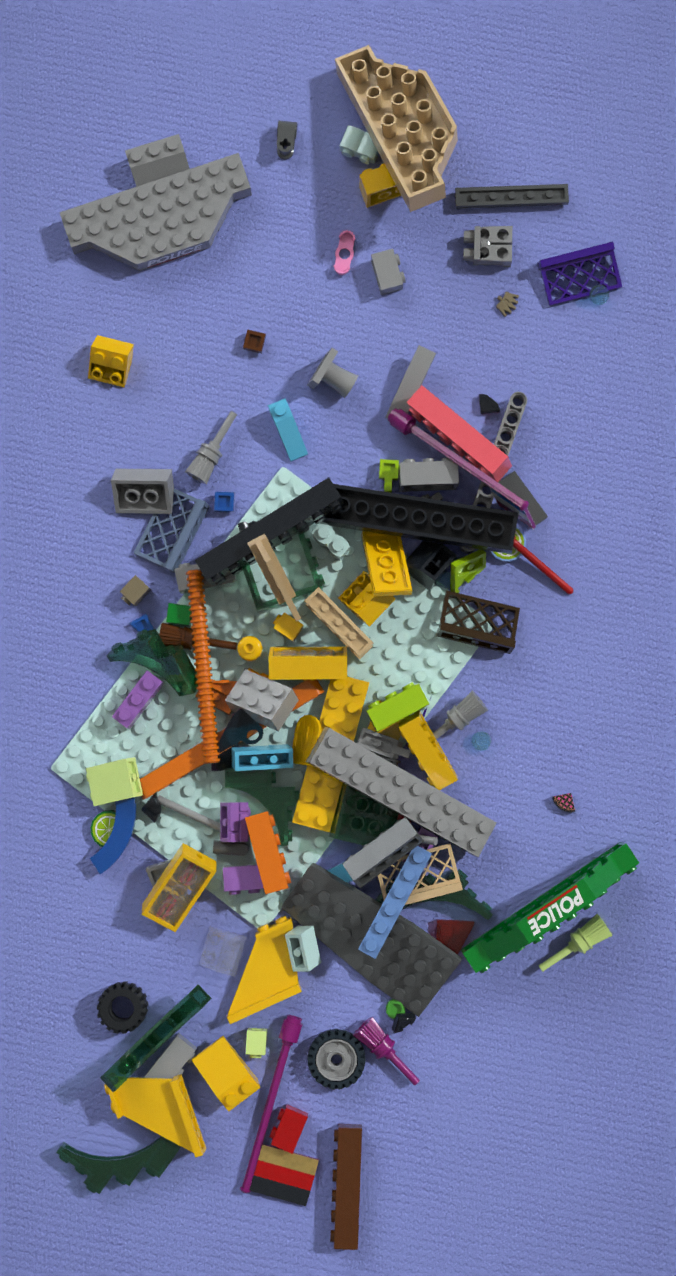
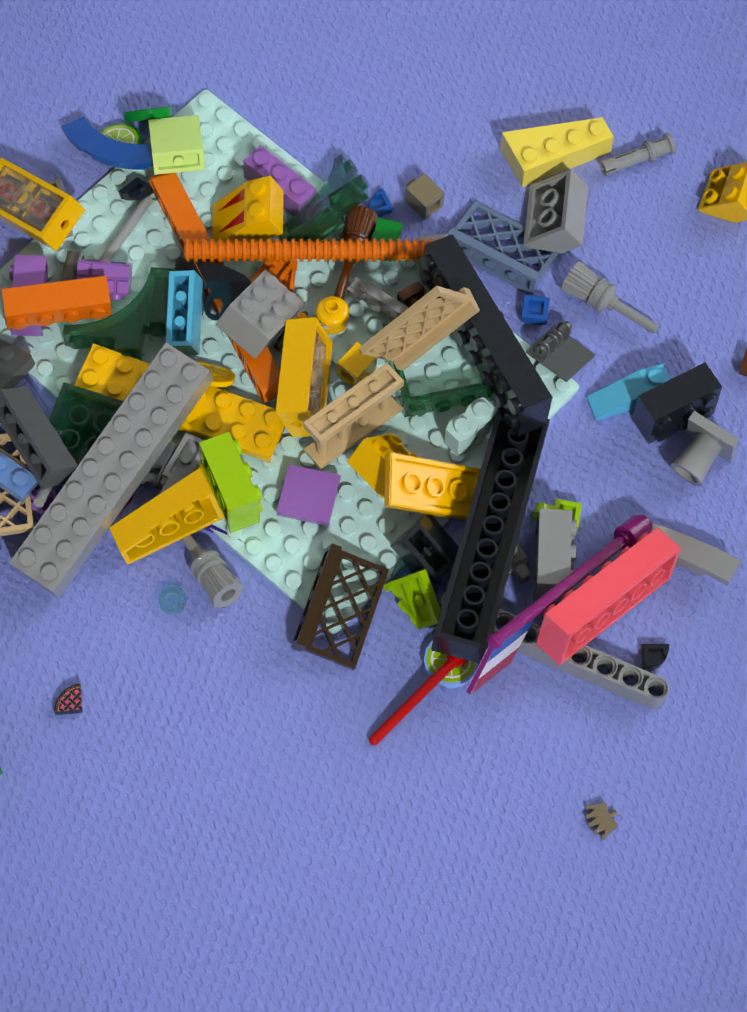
camera: 90 degrees right, 20 degrees down
(78, 425) = (648, 151): none -> light grey pin
(83, 809) = (148, 114): none -> green tile
(85, 498) = (554, 148): none -> light yellow wedge
(173, 720) = (249, 211): none -> yellow slope
(228, 592) = (411, 294): none -> reddish brown plate
(233, 616) = (376, 299): none -> light grey hinge
(259, 481) = (560, 352): none -> dark grey hinge
(298, 393) = (673, 402): none -> black brick
(394, 652) = (308, 495): none -> medium lavender tile
(515, 485) = (512, 689): dark grey tile -> none
(609, 434) = (602, 819): none -> dark tan piece

